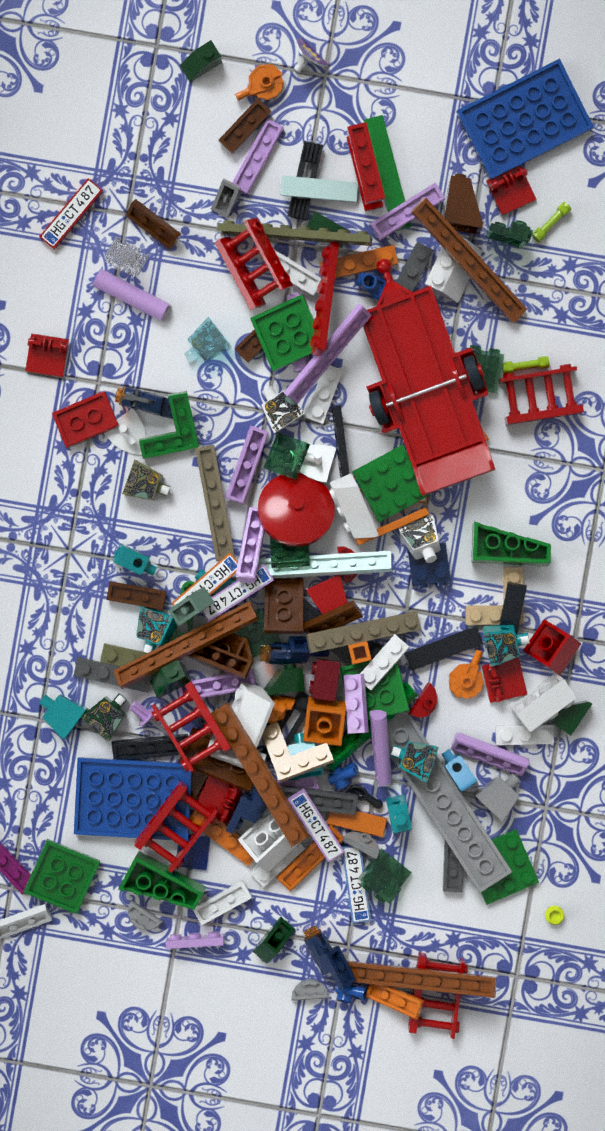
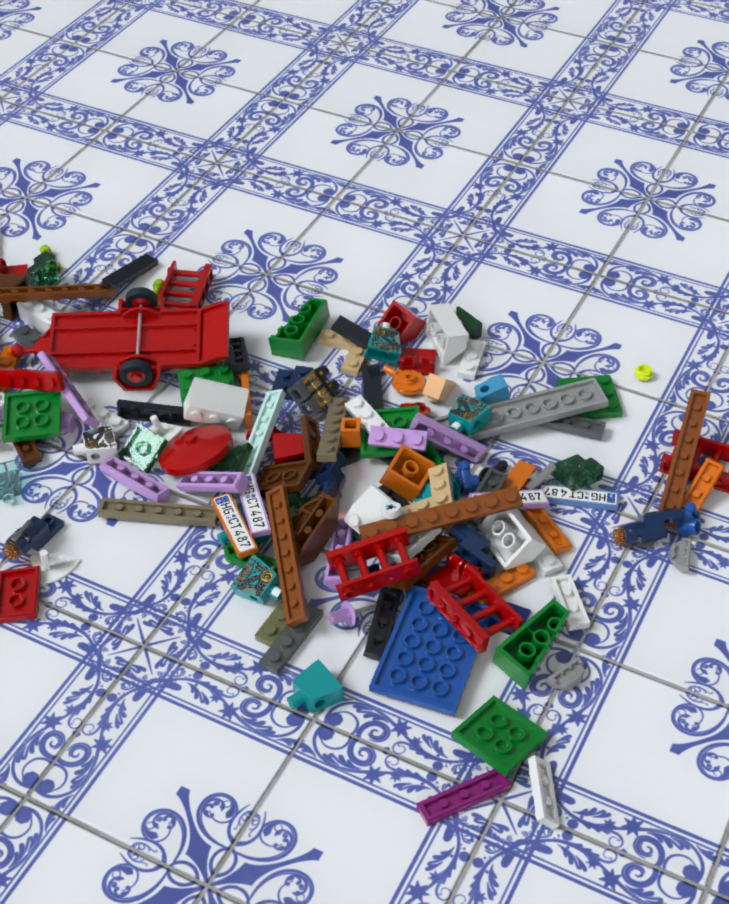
camera: 75 degrees left, 45 degrees down
(106, 716) = (335, 649): torso -> none
(125, 557) = (178, 584): teal torso -> none
(136, 595) = (215, 596): reddish brown plate -> none
(144, 482) = (107, 559): torso -> none
(170, 678) = (315, 579): dark green slope -> none
(180, 440) = (79, 516): green plate -> none
(191, 606) = (248, 532): sand green slope -> none
(195, 940) = (604, 633): lavender plate -> none
(247, 729) = (391, 510): none -> white tile
(273, 940) = (622, 569): dark green slope -> none
(286, 680) = (353, 490): dark green slope -> none
(325, 679) = (365, 462): dark red brick -> none
(374, 287) = (28, 362): blue plate -> none
(398, 814) = (518, 444): teal torso -> none
(413, 595) = (314, 391): none -> hips
(421, 539) = (267, 375): torso -> none
(446, 497) = (238, 354): none -> black tile
(465, 715) = (438, 388): none -> light nougat slope
(489, 754) = (492, 368): lavender brick -> none
(499, 795) = (523, 380): light grey torso -> none
(551, 323) = (129, 272): none -> black tile

